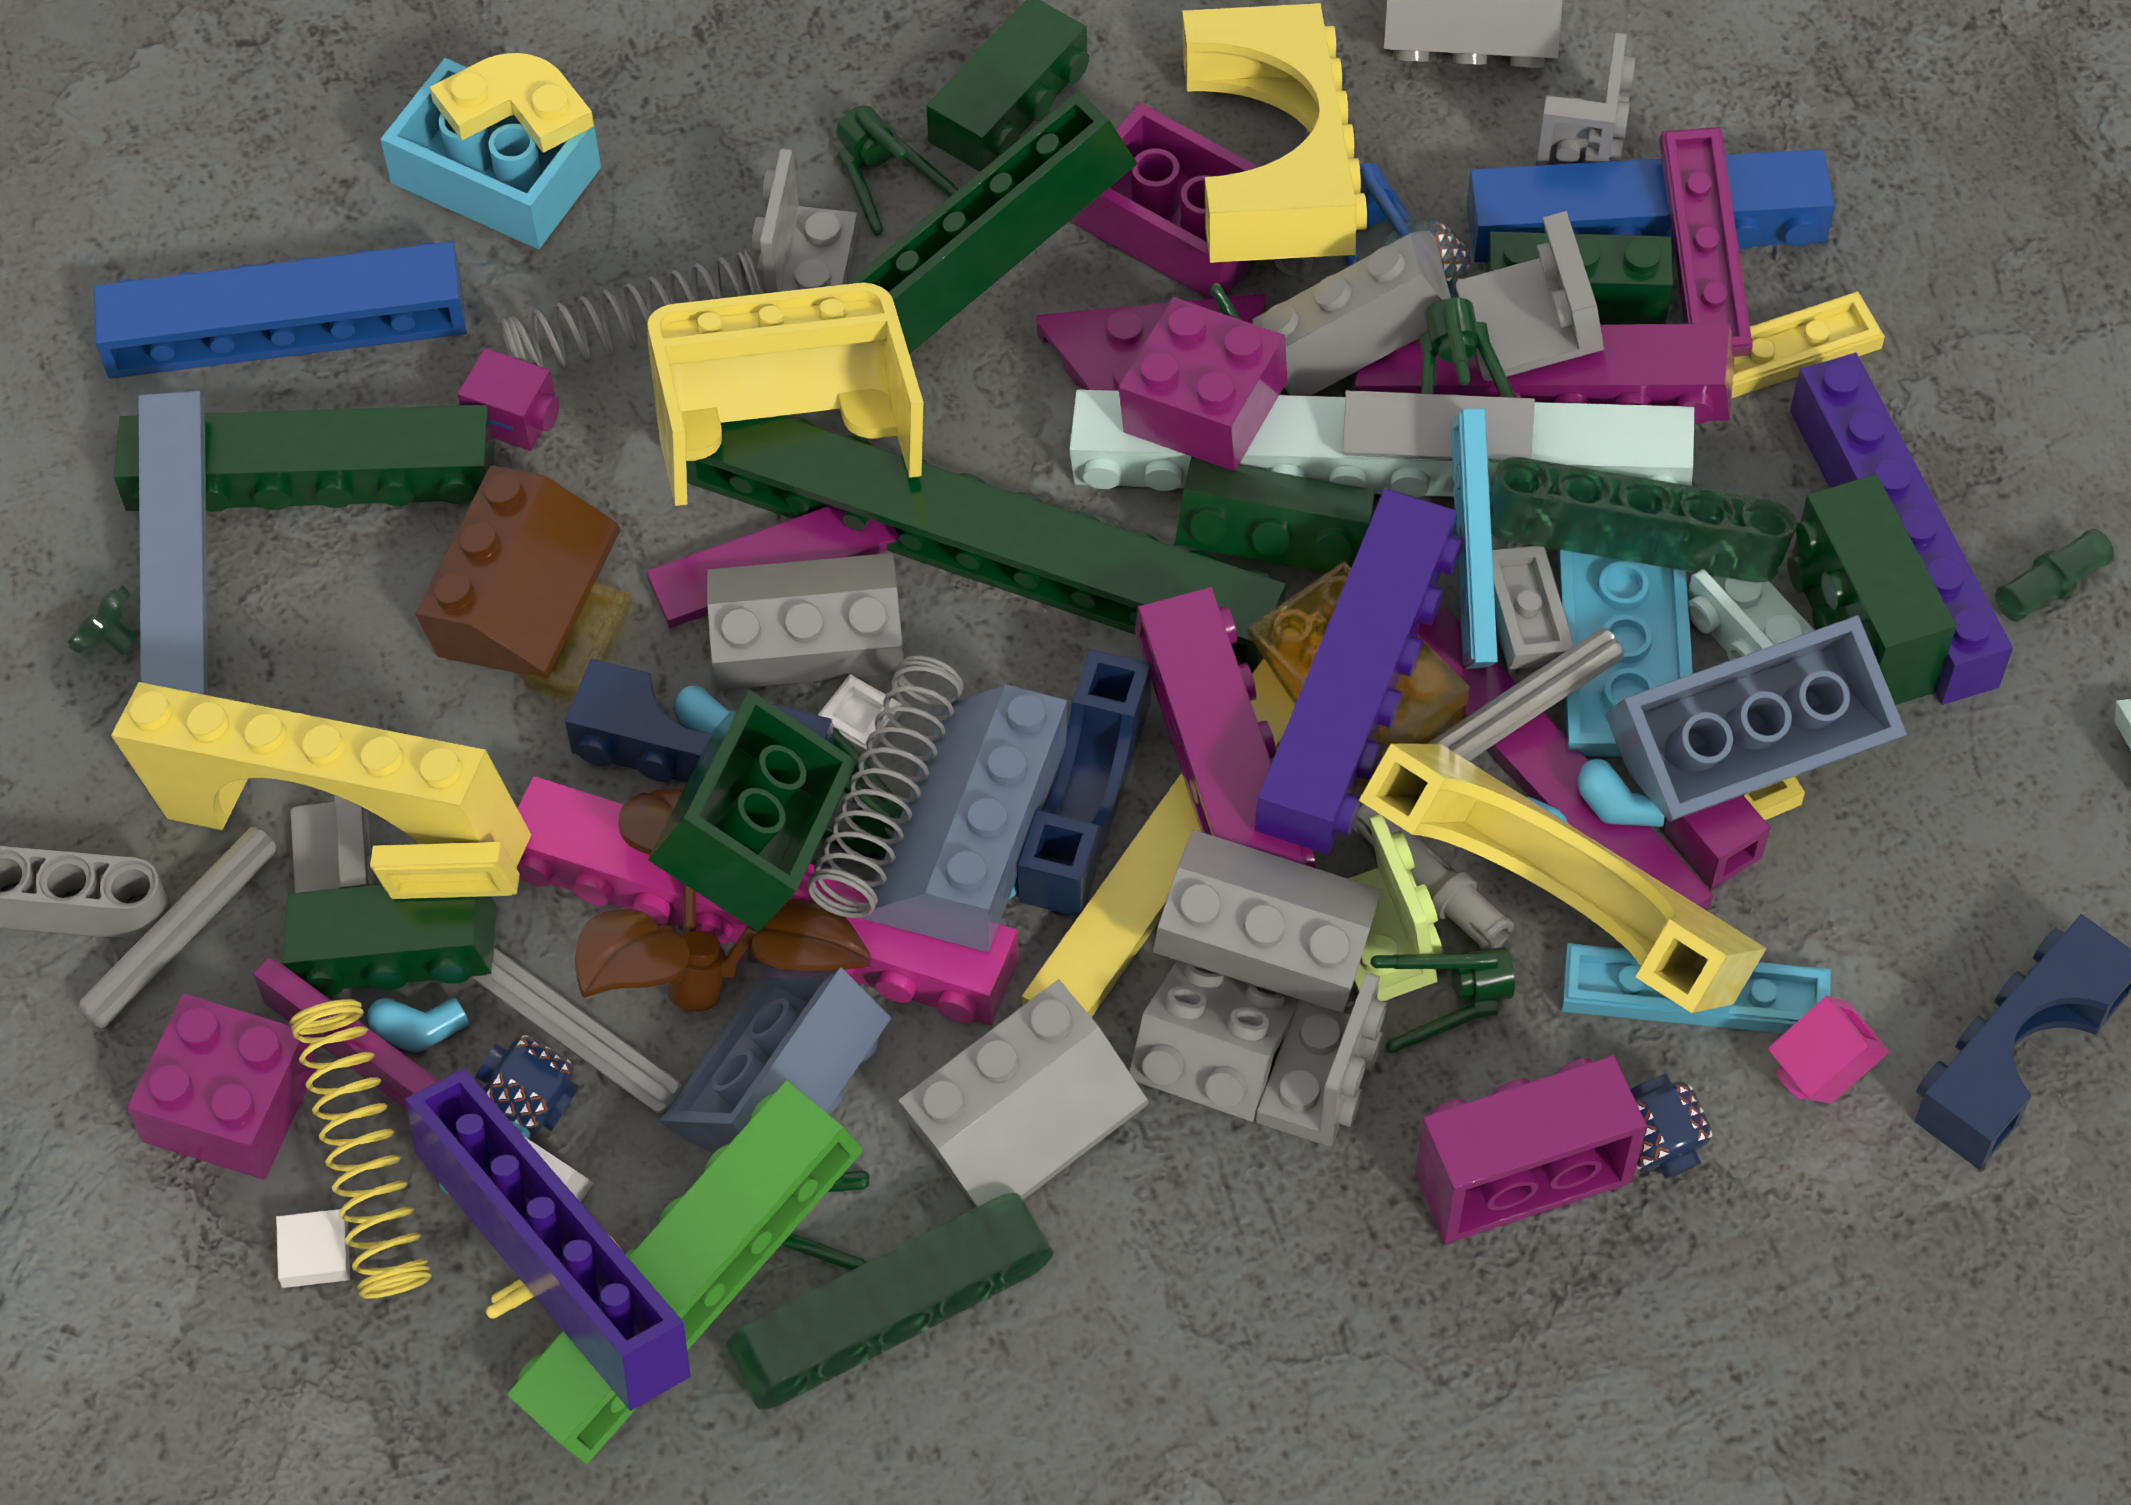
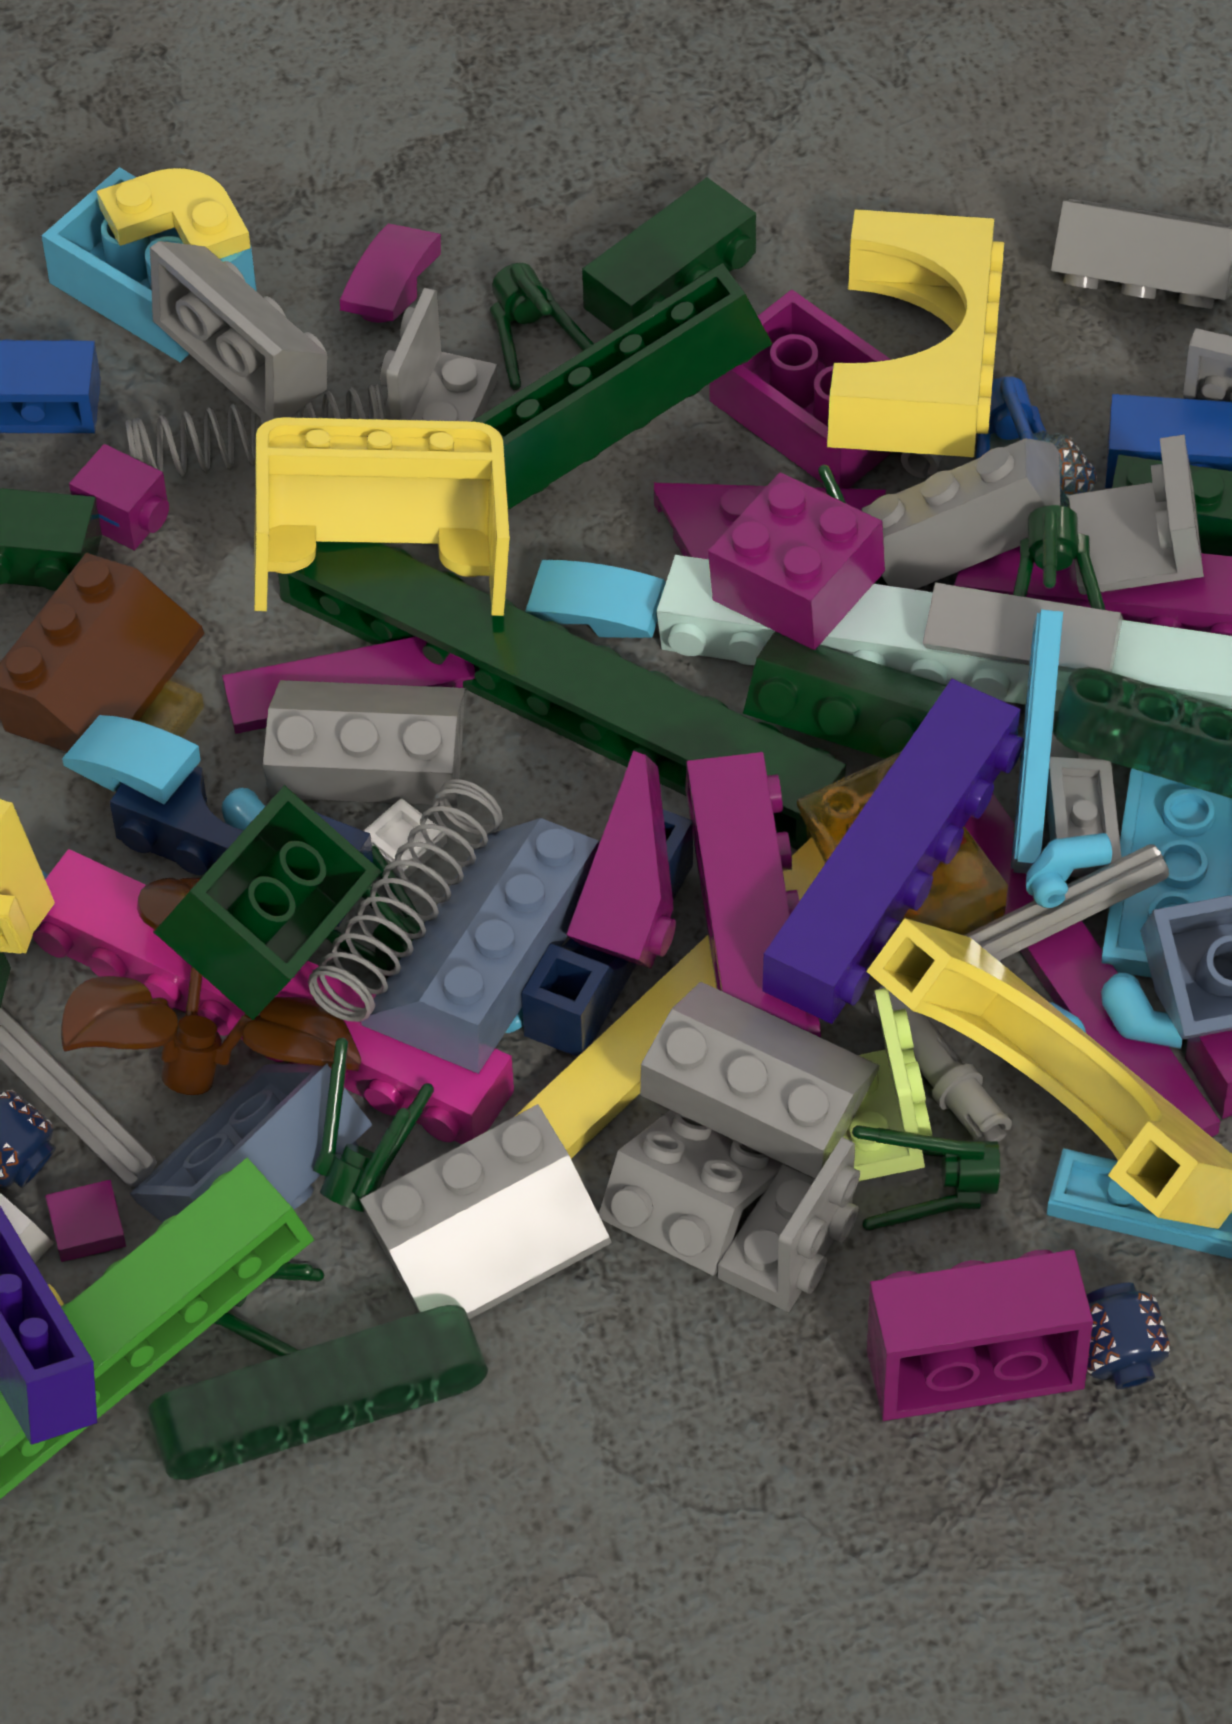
camera: 10 degrees right, 5 degrees down
(581, 670) = (133, 754): none -> medium azure slope
(600, 218) = (235, 330): none -> light grey slope
(621, 1155) = (85, 1220): none -> magenta tile
(730, 131) = (388, 273): none -> magenta slope
(889, 1069) = (359, 1169): none -> dark green plant
(1004, 439) = (606, 597): none -> medium azure slope
(1103, 741) = (629, 885): none -> magenta slope
(1519, 652) = (1057, 861): none -> medium azure arm

